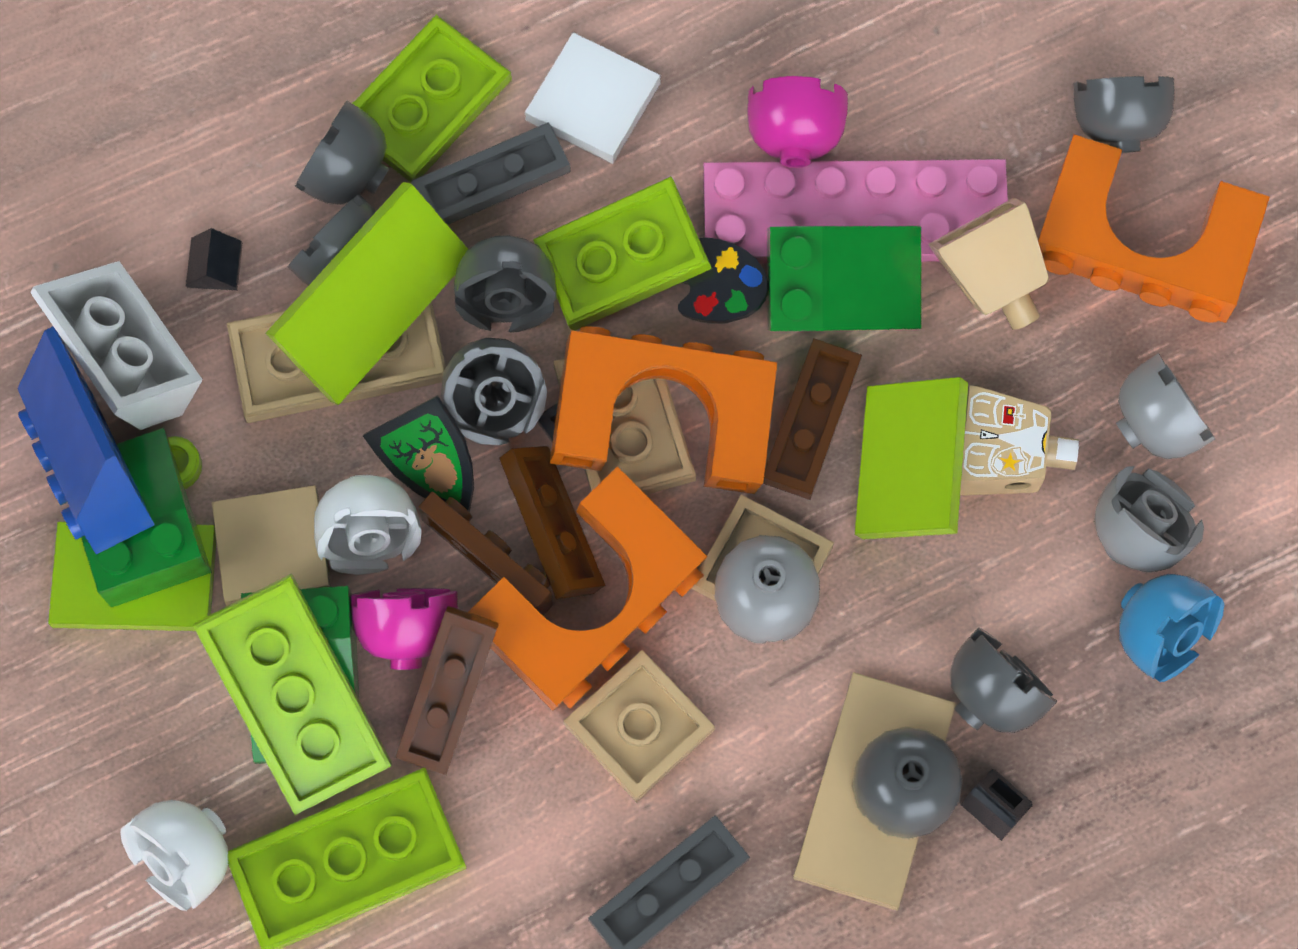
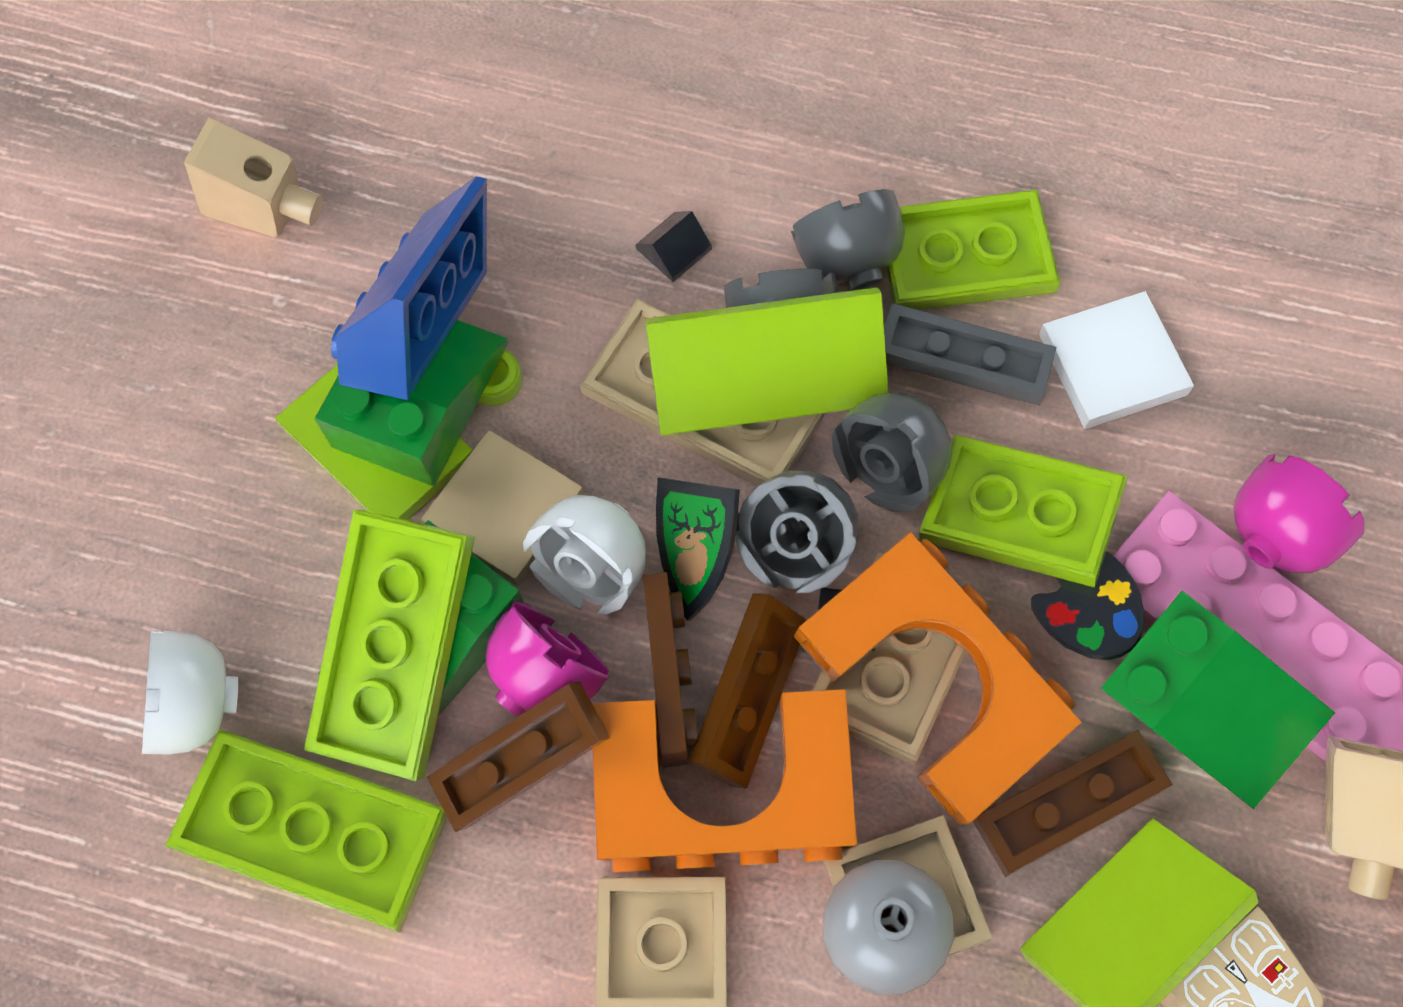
camera: 45 degrees right, 5 degrees down
(120, 344) = (526, 240): white slope -> none

